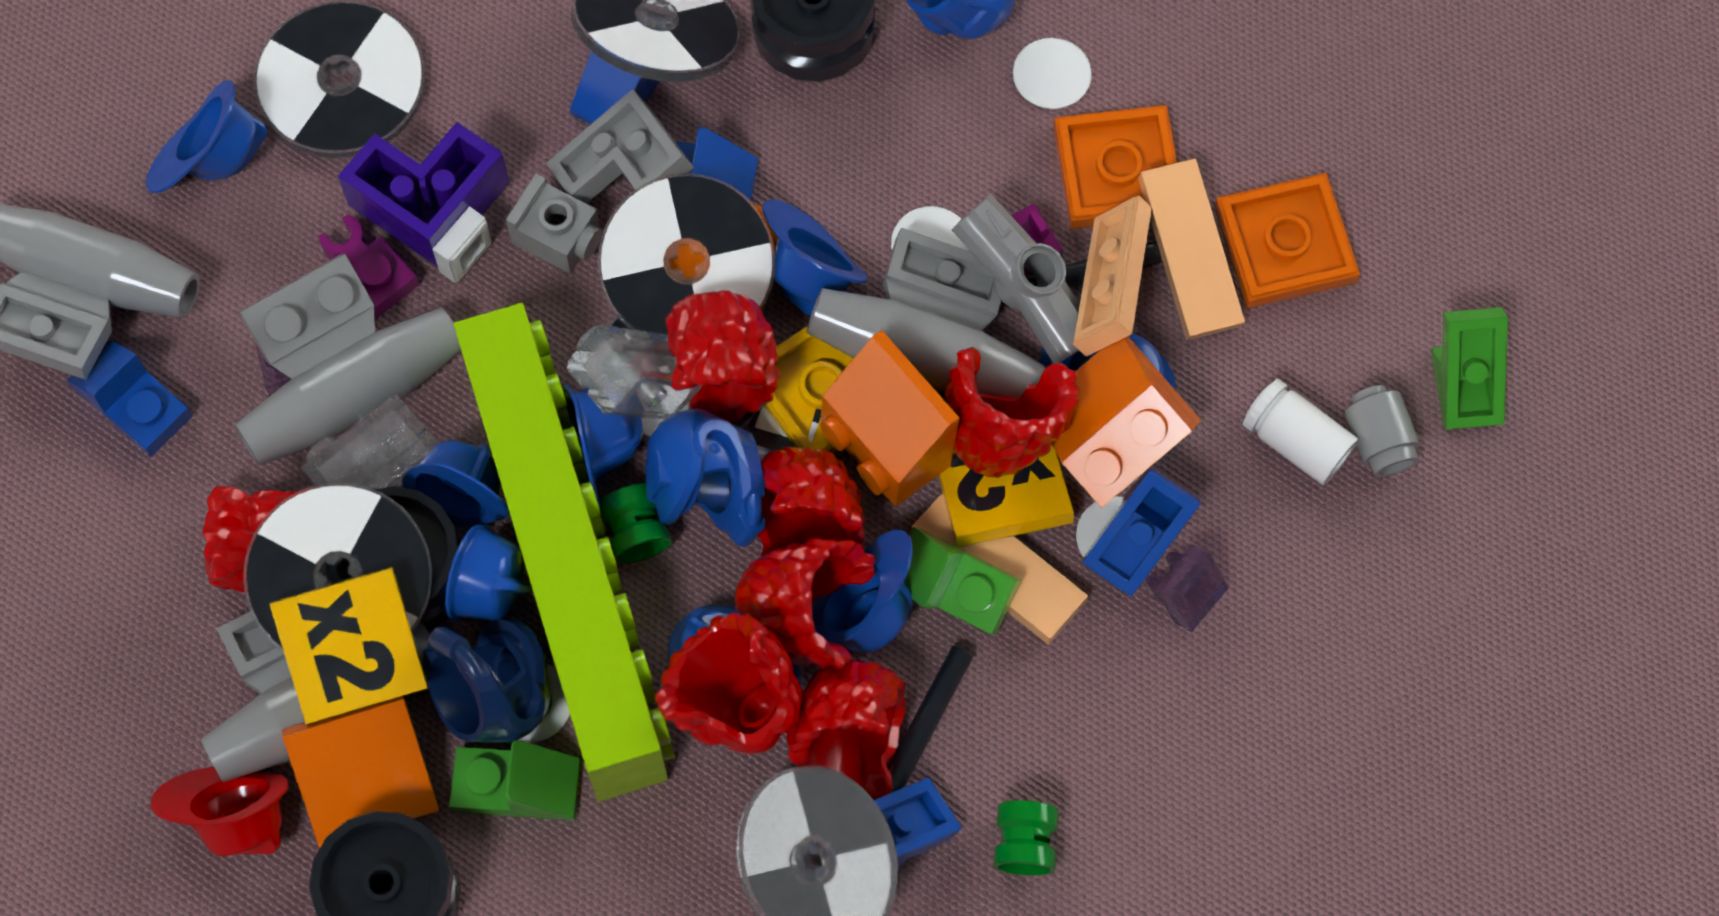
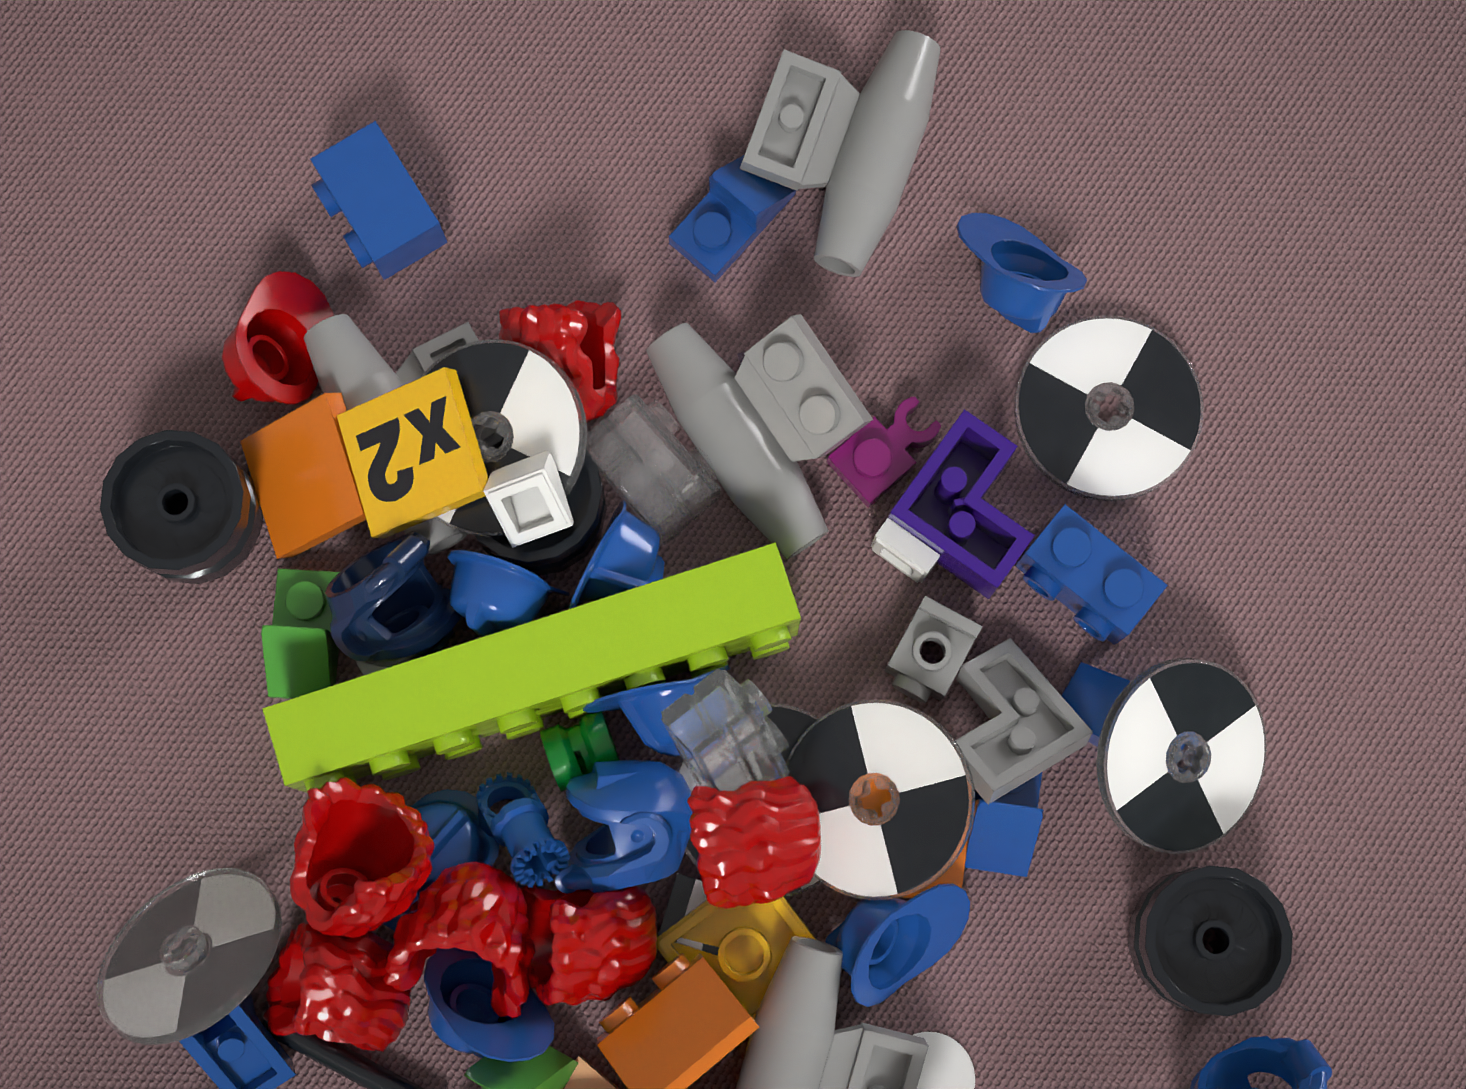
camera: 90 degrees right, 10 degrees up
(87, 712) = (378, 200): none -> blue brick
(399, 531) = (529, 499): none -> white slope
(495, 87) = (1090, 577): none -> blue brick
(705, 564) = (521, 829): none -> blue connector

